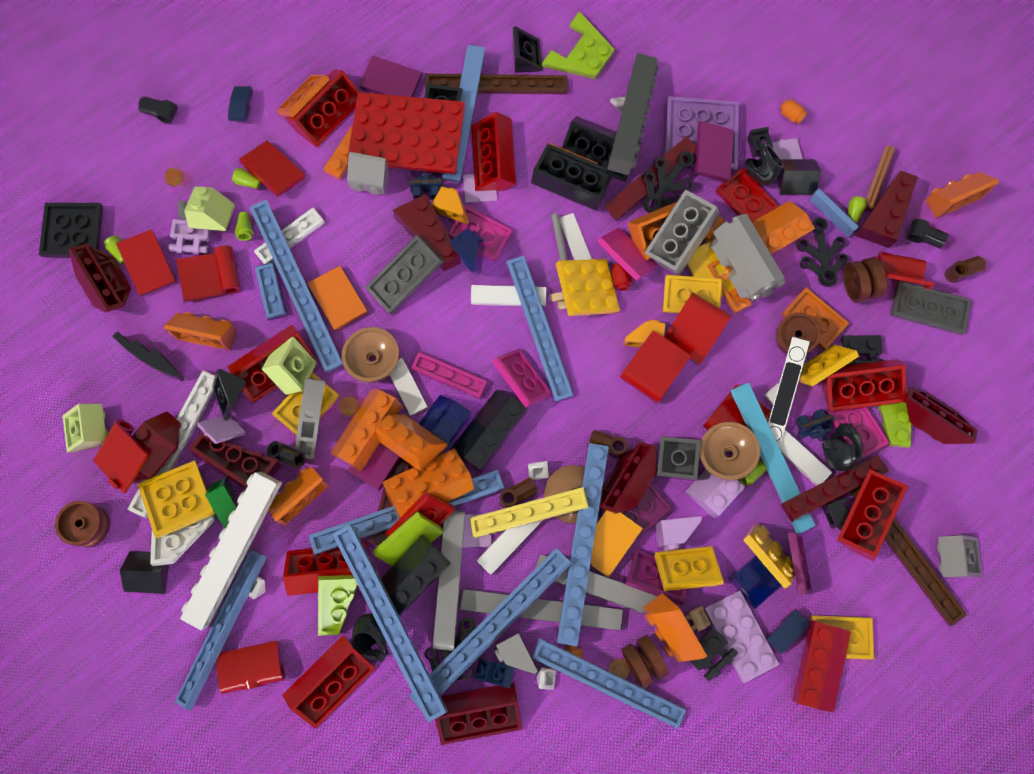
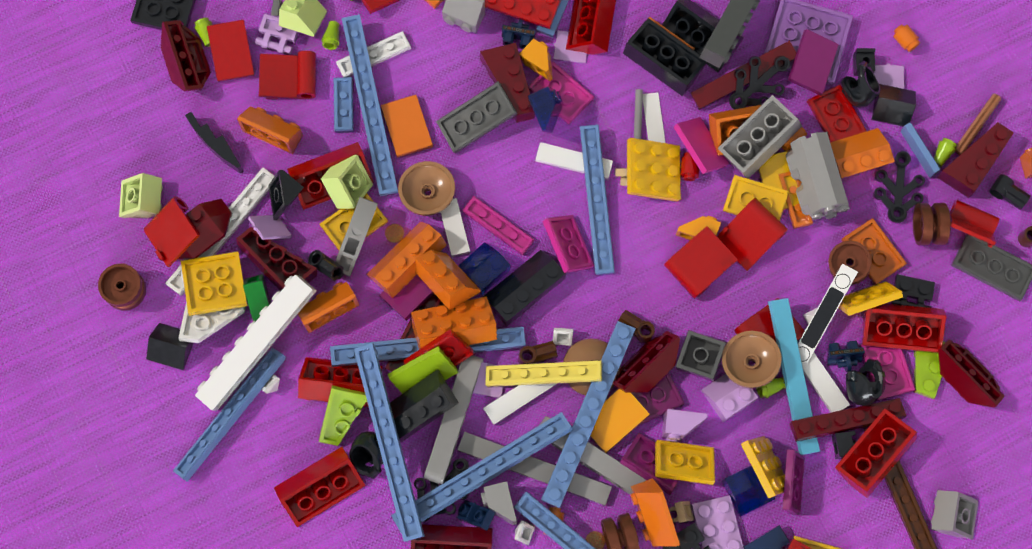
camera: 15 degrees right, 0 degrees up
(249, 667) = (248, 456): red panel -> none

